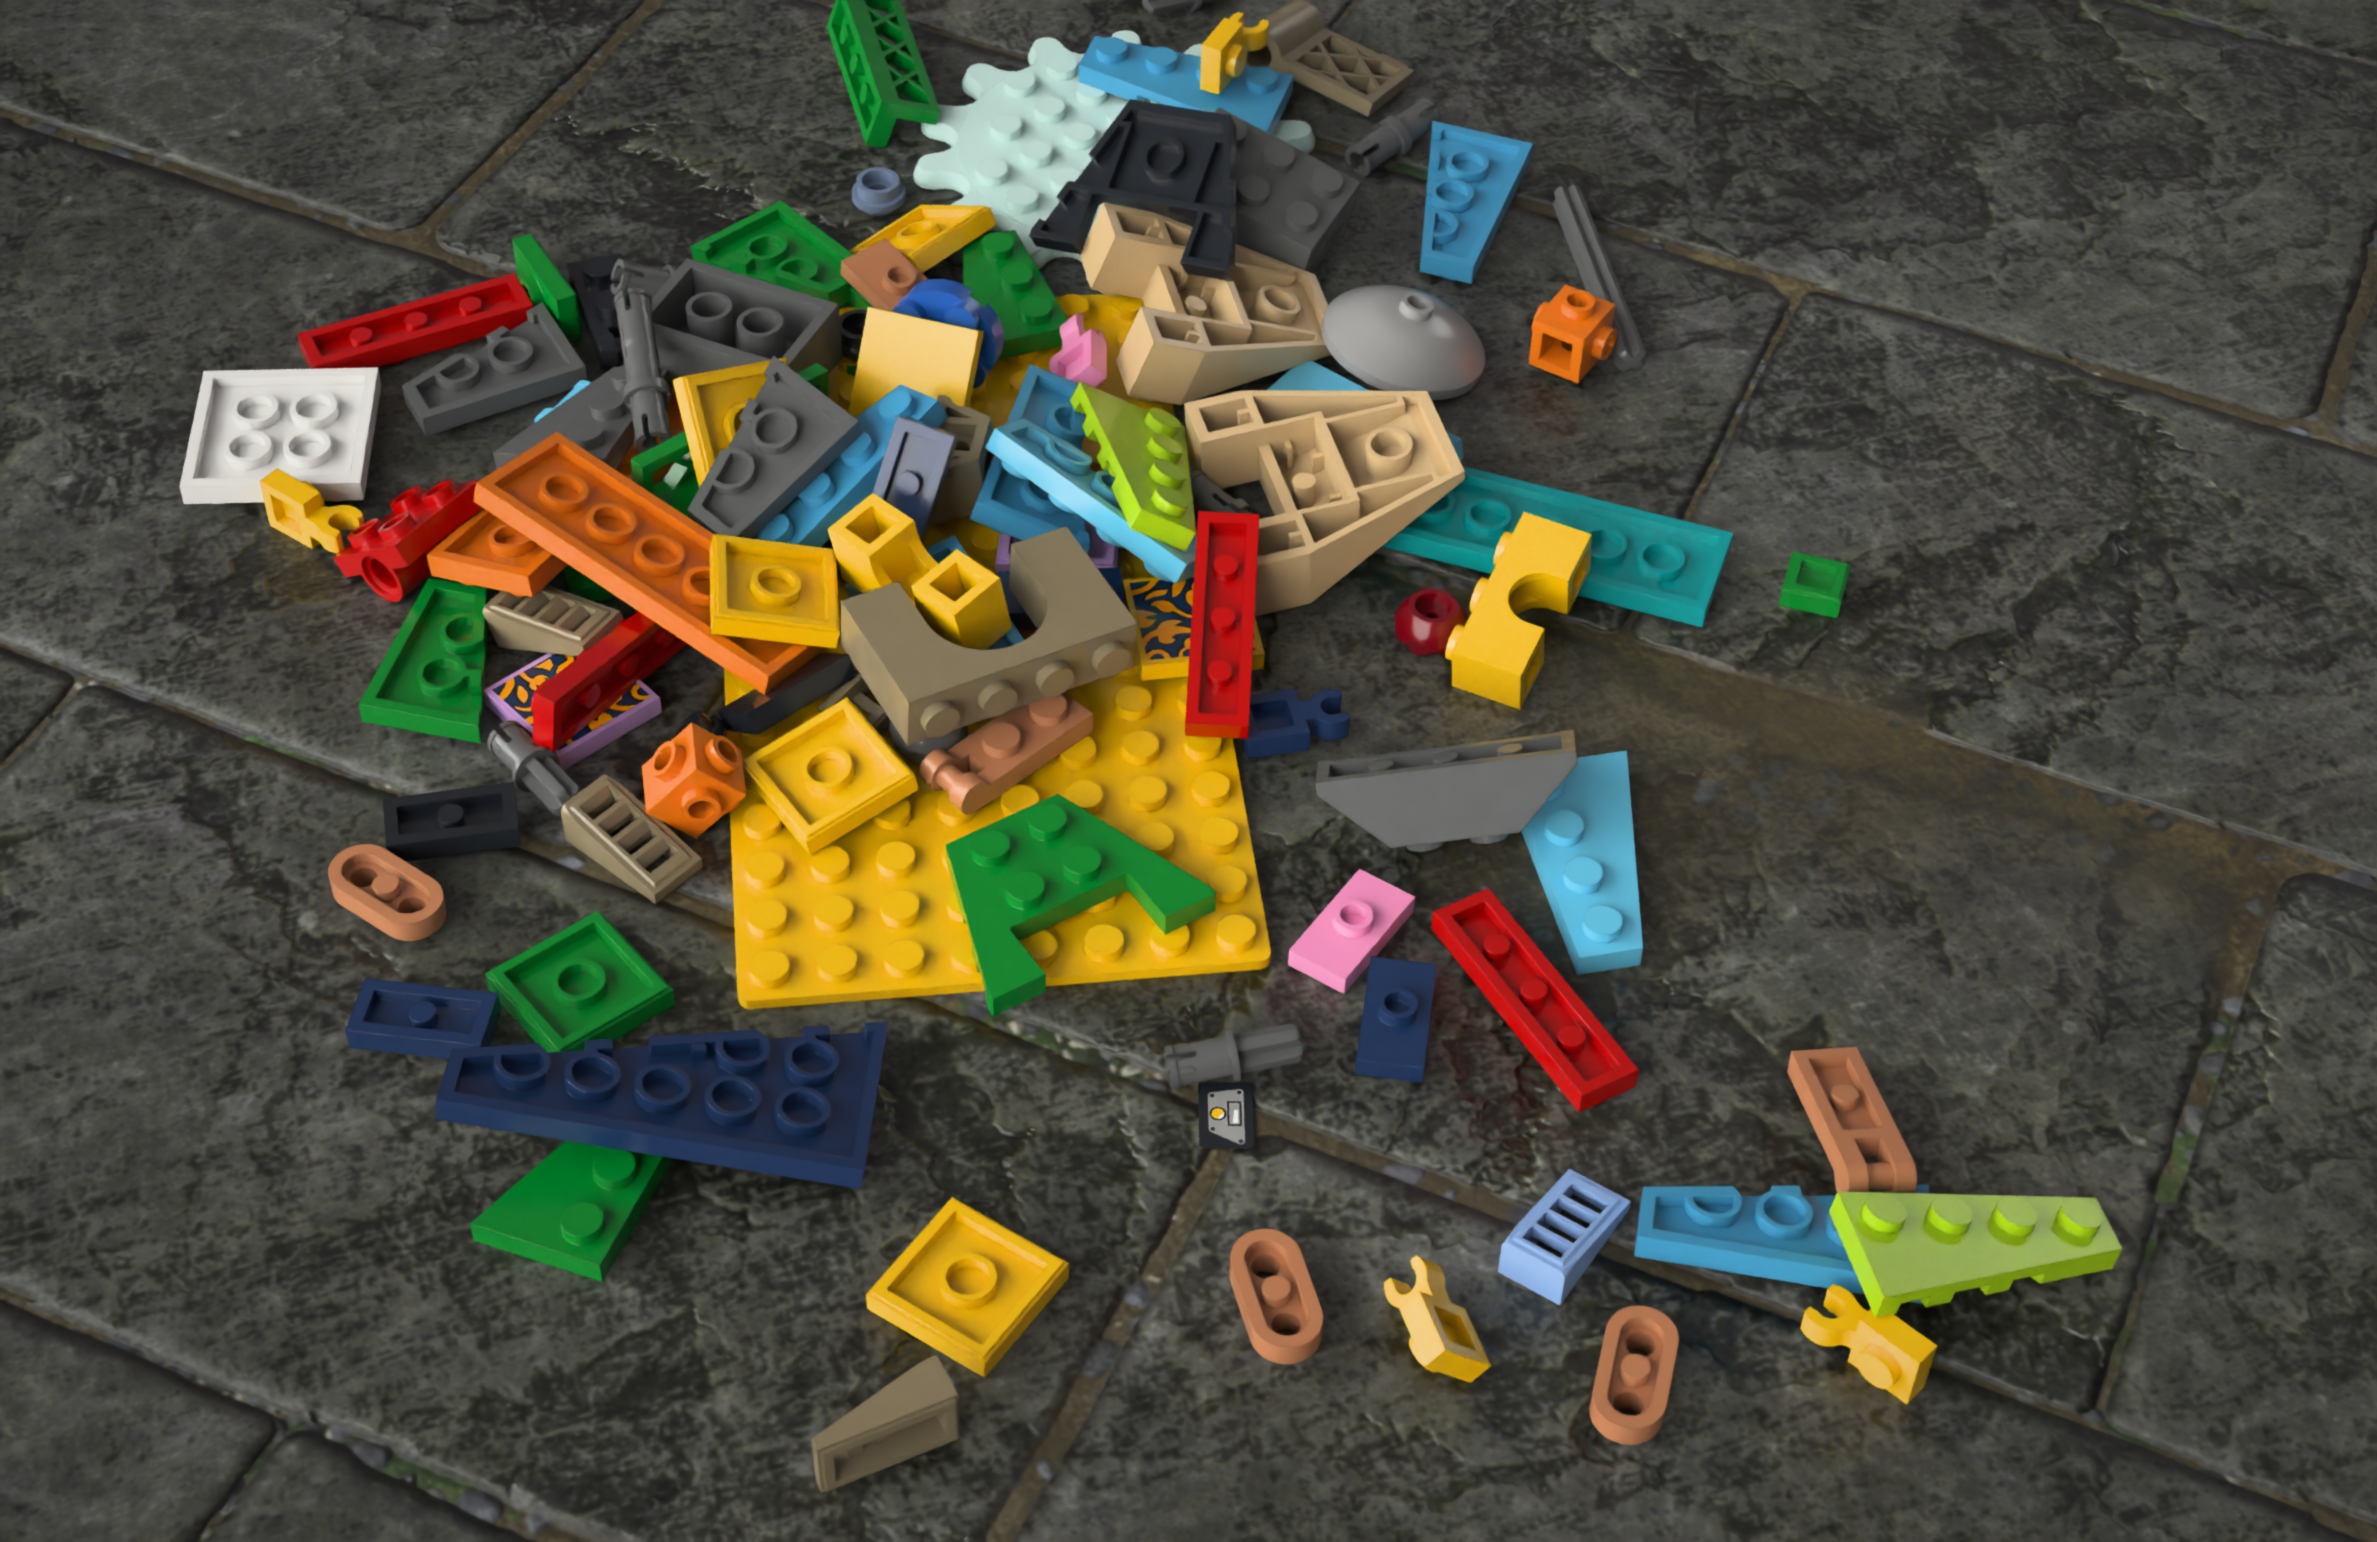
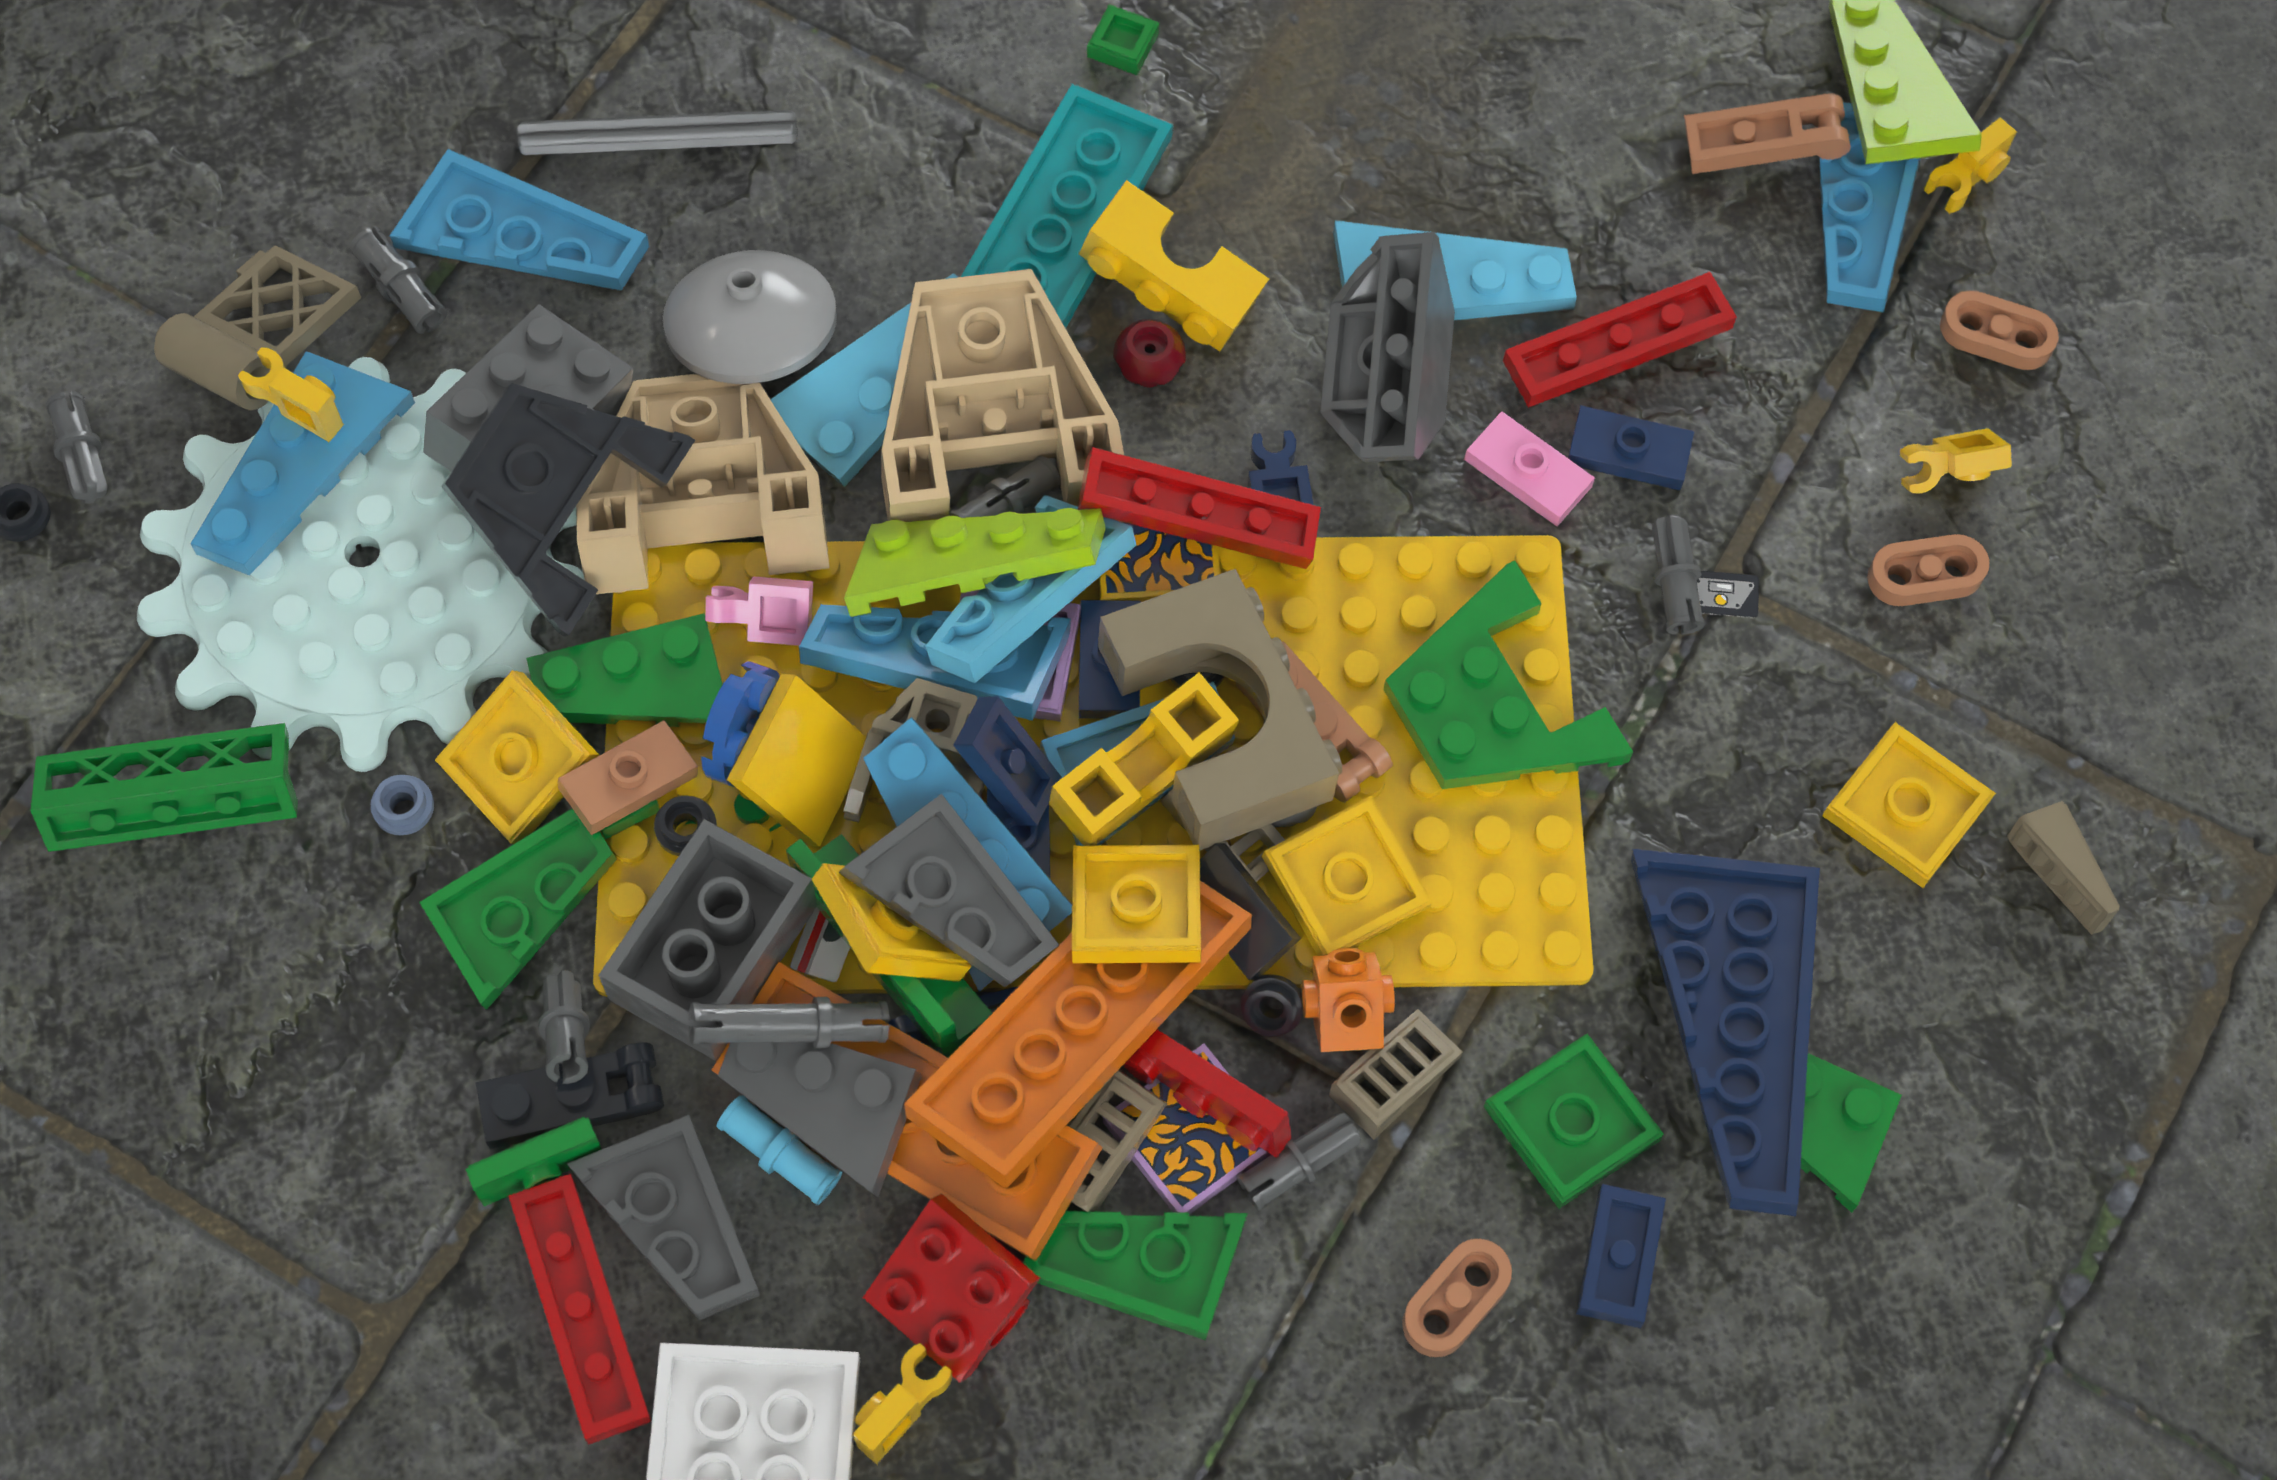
camera: 85 degrees left, 20 degrees up
(452, 822) = (1367, 1239): black plate -> none
(1543, 1271) = (1863, 381): light blue slope -> none
(1572, 333) = (771, 162): orange brick -> none

